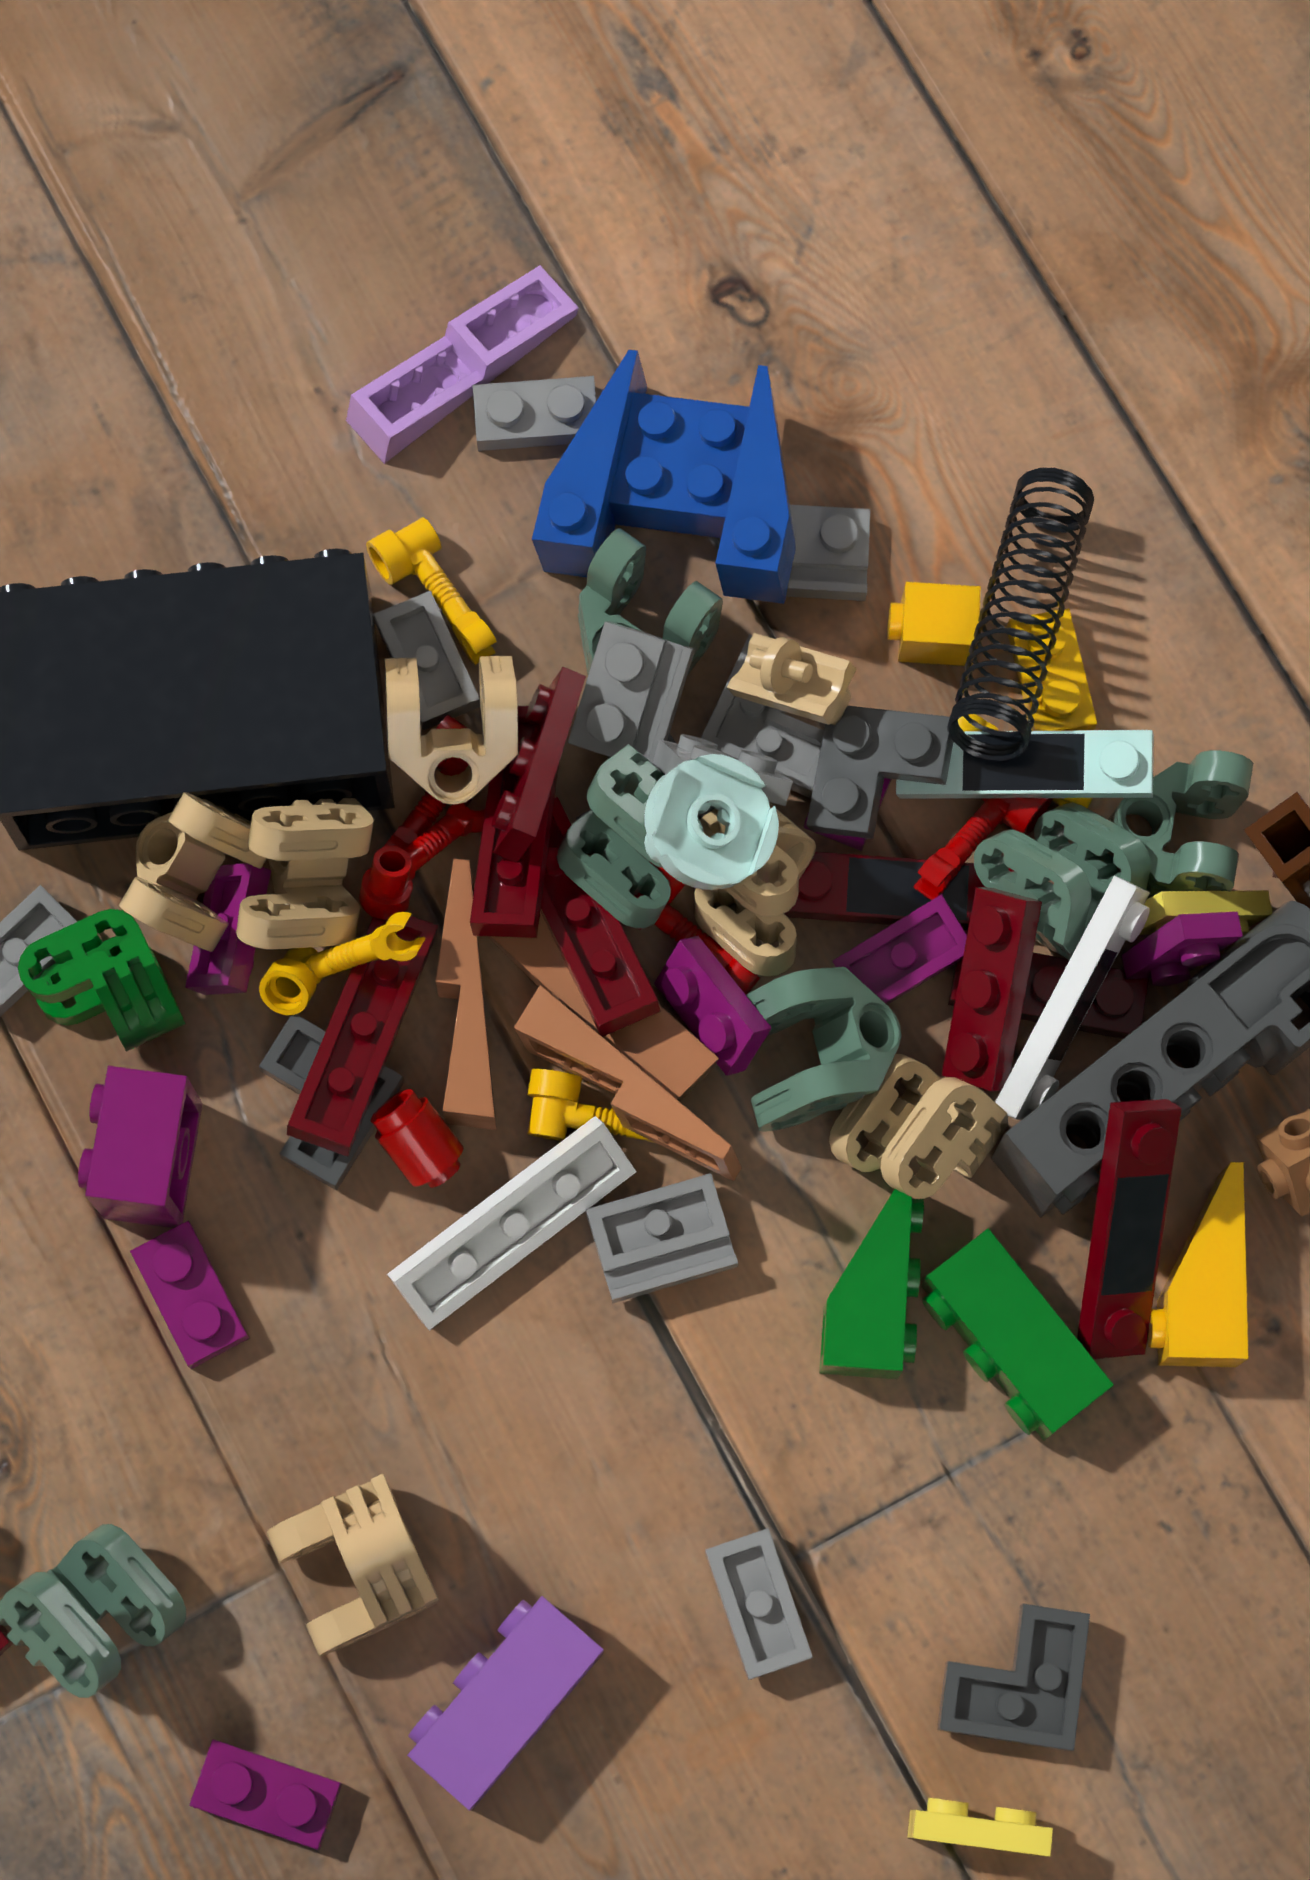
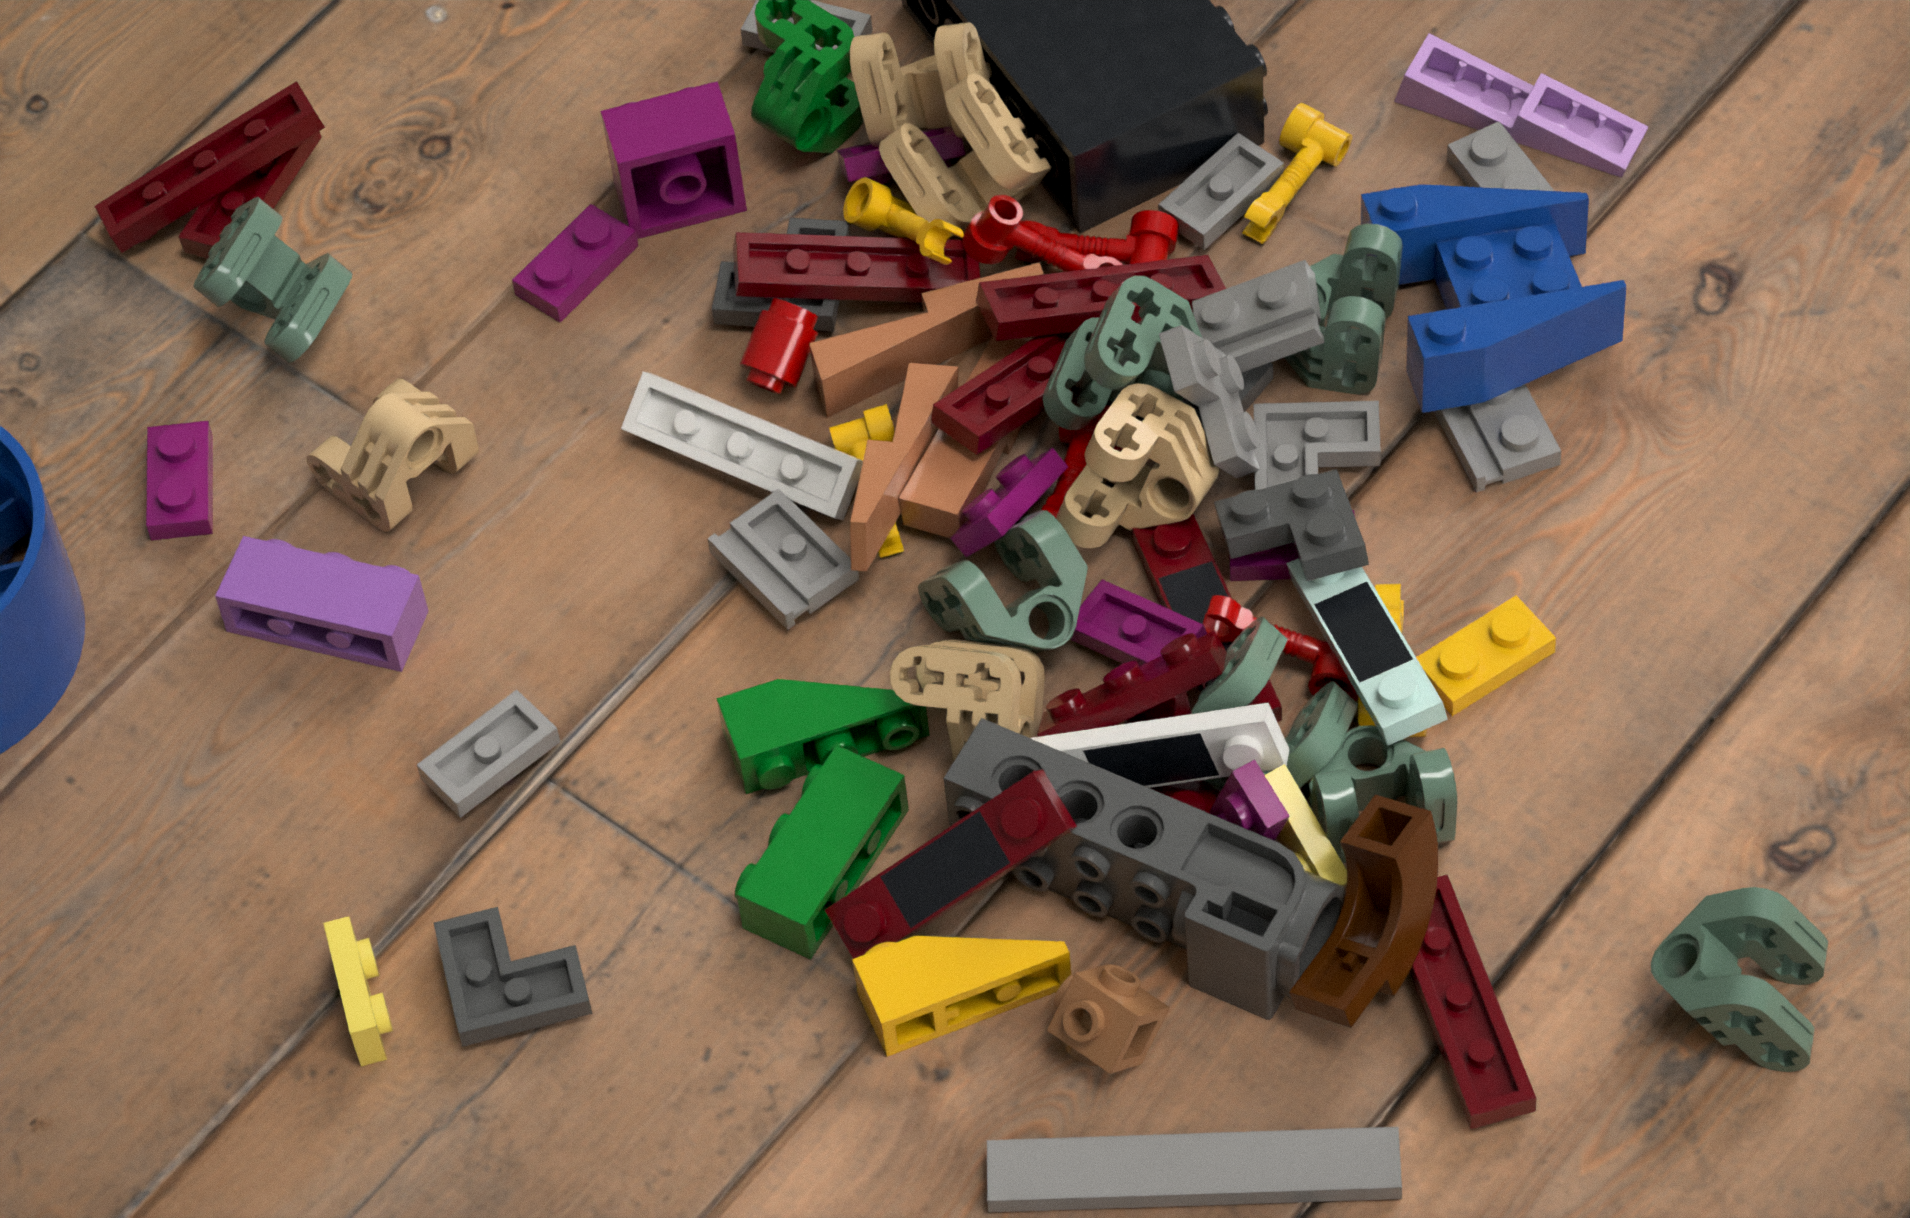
camera: 75 degrees right, 20 degrees down
(483, 752) = (1178, 222): tan piece -> none
(536, 764) = (1199, 272): dark red plate -> none
(677, 838) = (1112, 390): light aqua plate -> none
(794, 679) = (1334, 419): tan hips -> none
(935, 622) = (1476, 539): yellow brick -> none
(1050, 522) = (1639, 570): black piece -> none

